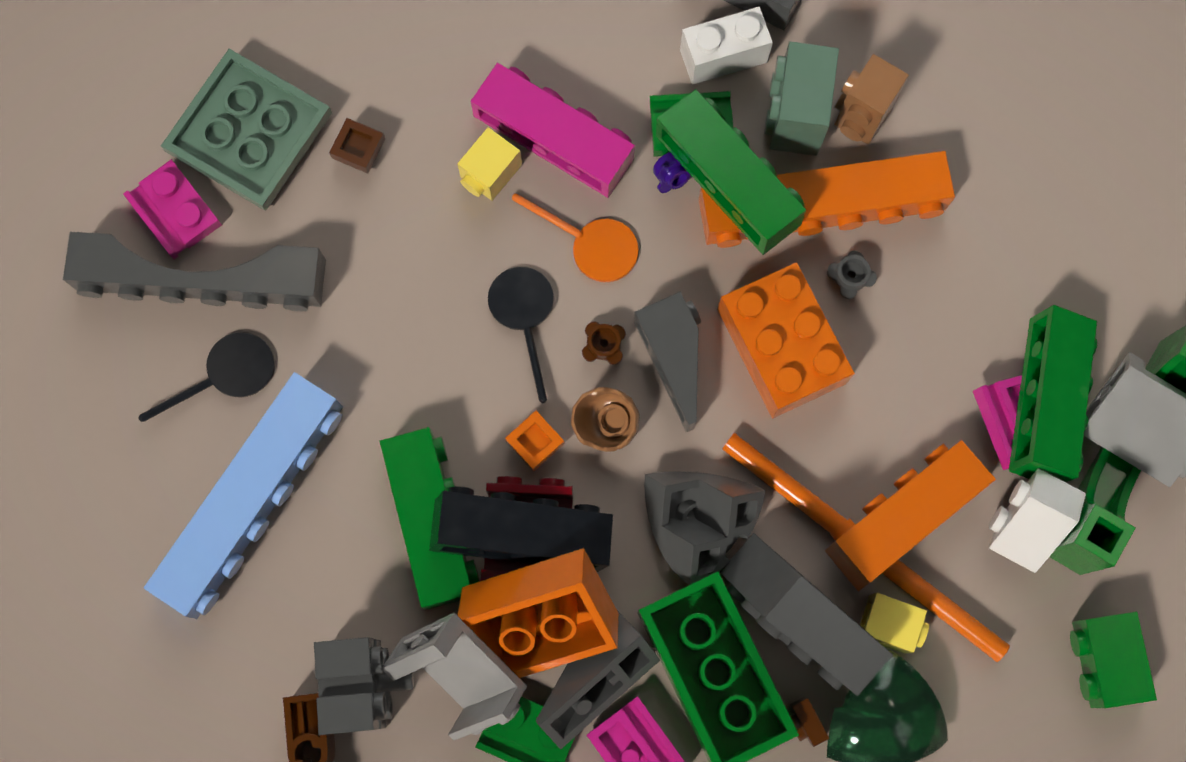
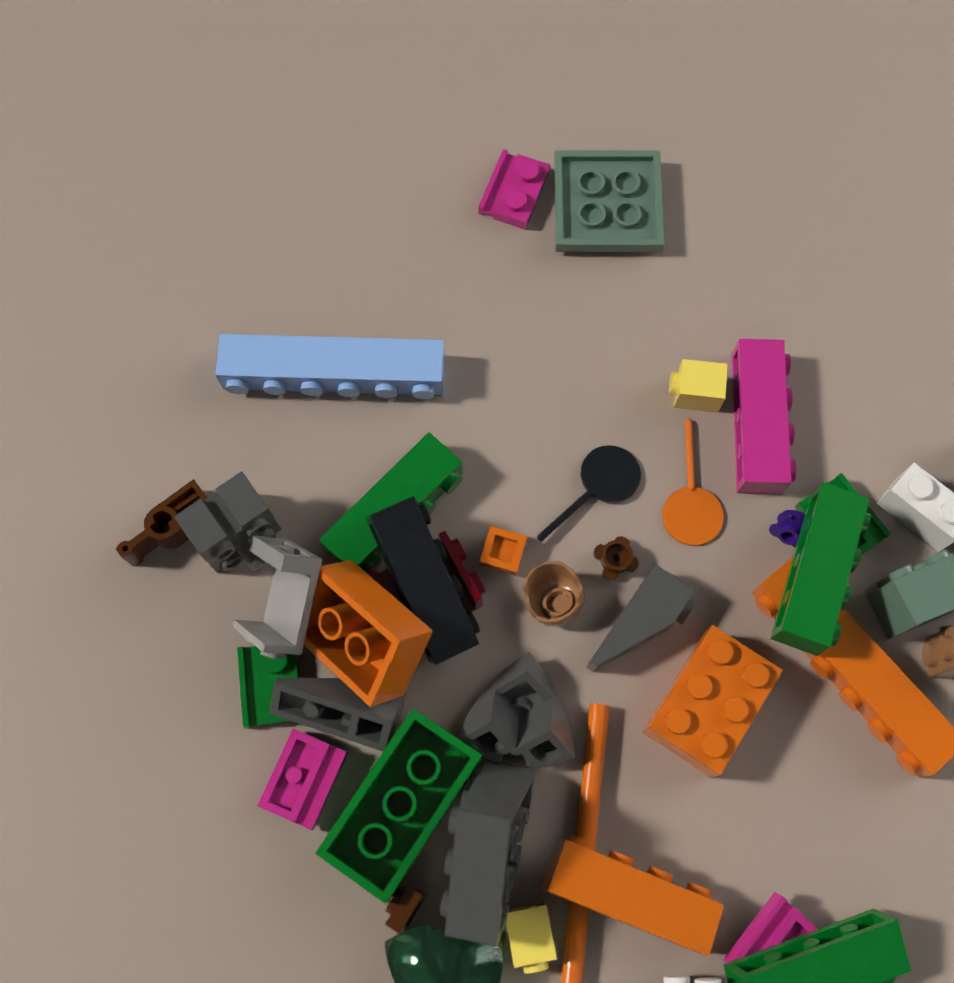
camera: 60 degrees right, 5 degrees down
(236, 367) = (424, 303): black piece -> none
(280, 276) = (511, 288): dark grey arch -> none
(357, 145) = (648, 283): reddish brown plate -> none
(856, 263) = (818, 725): dark grey plate -> none

